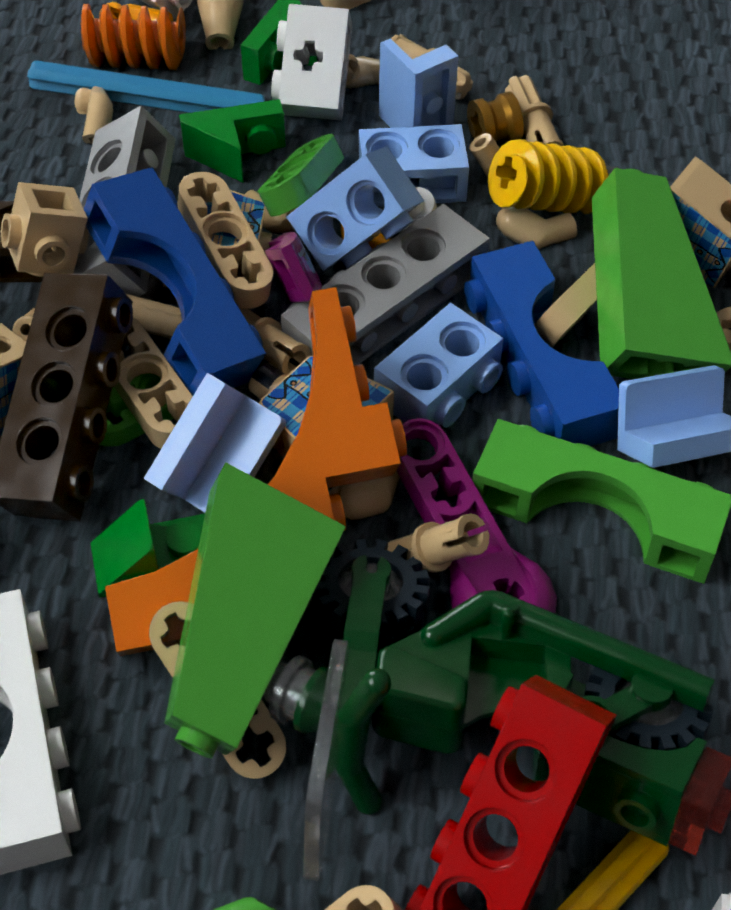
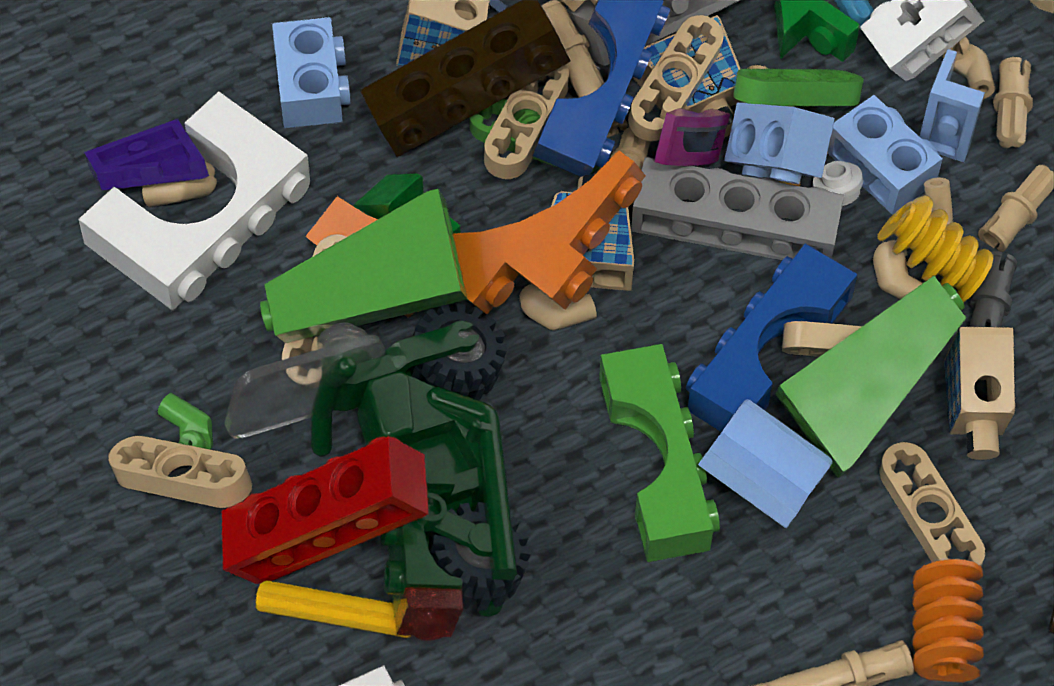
camera: 55 degrees right, 5 degrees up
(213, 430) = (502, 186): light blue panel -> none
(441, 544) = (523, 367): tan axle -> none
(442, 367) = (692, 277): light blue brick -> none
(498, 117) = (987, 181): pearl gold wheel -> none
(499, 565) = (557, 393): magenta beam -> none

